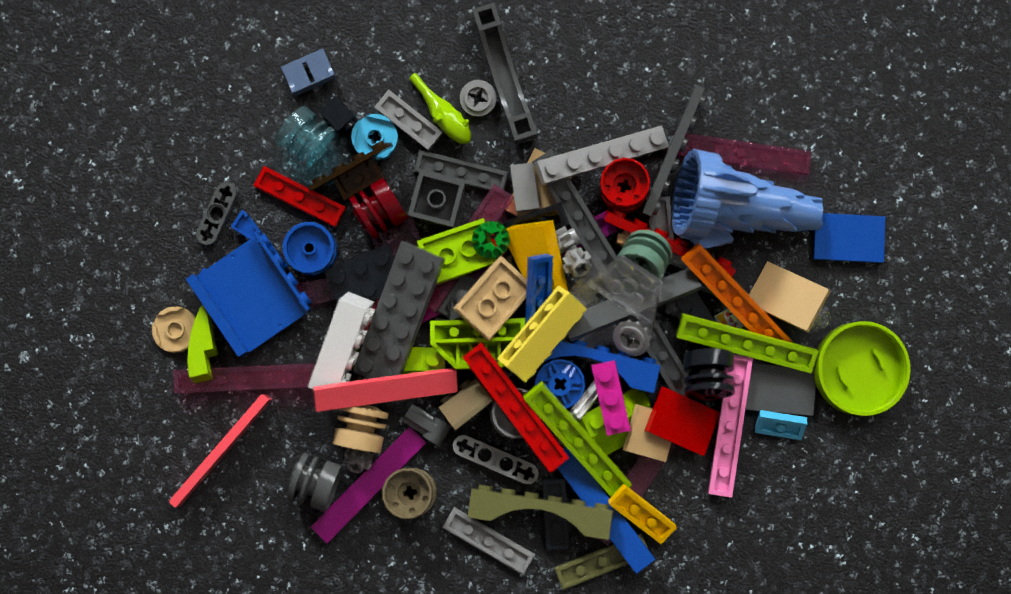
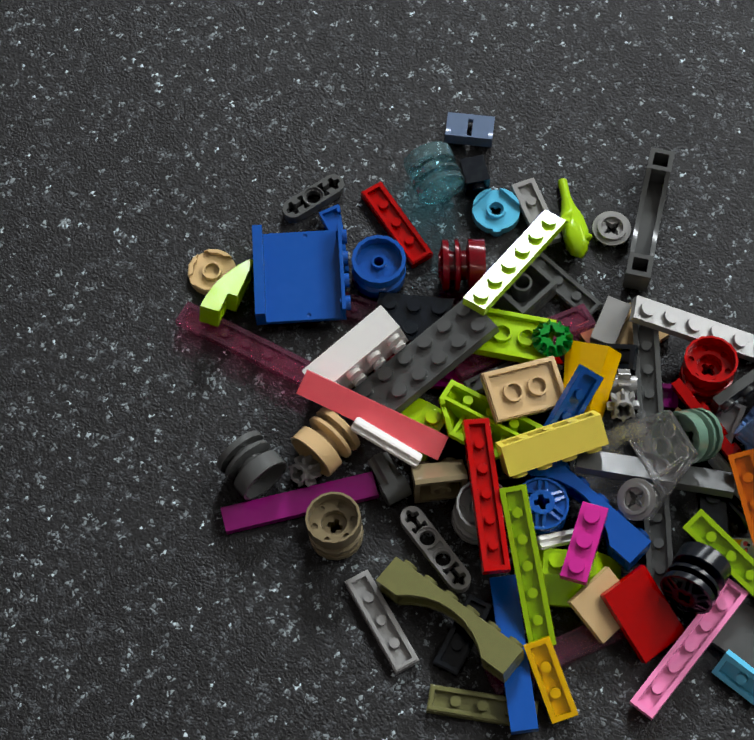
camera: 30 degrees right, 20 degrees down
(220, 450) = (183, 393): coral tile -> none
(357, 174) = (459, 225): dark brown bracket -> none
(405, 405) = (386, 442): none -> white axle
(421, 187) = (513, 262): none -> plate

